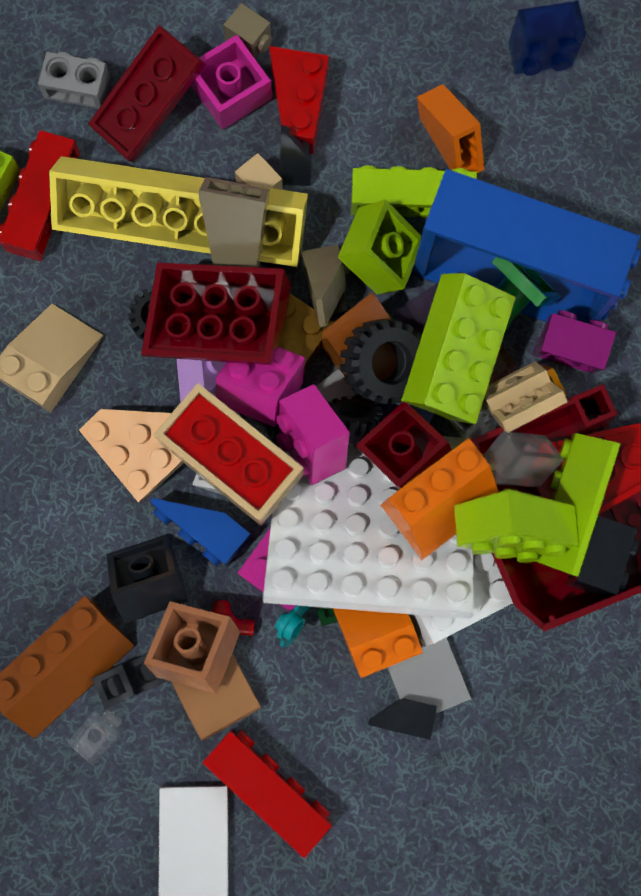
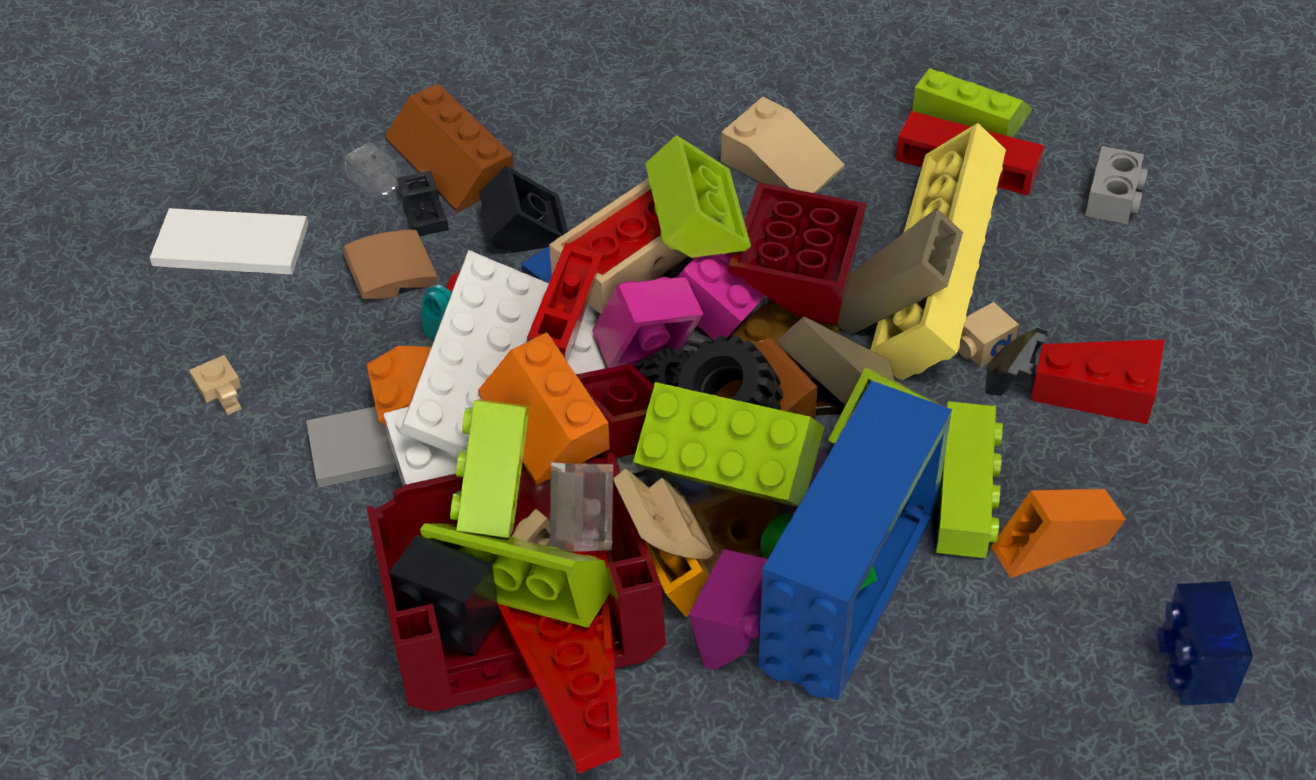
camera: 100 degrees right, 30 degrees down
(146, 94) = (1095, 232): dark red tile -> none
(192, 647) = (437, 231): nougat brick -> none
(209, 392) = (695, 201): none -> lime slope
(231, 82) = (1116, 305): dark pink brick -> none
(251, 29) = (1191, 333): dark tan brick -> none
(268, 793) = (272, 293): red brick -> none
(333, 497) = (567, 297): none -> red slope
(370, 819) = (218, 381): none -> tan plate
(407, 718) = (310, 418): black slope -> none

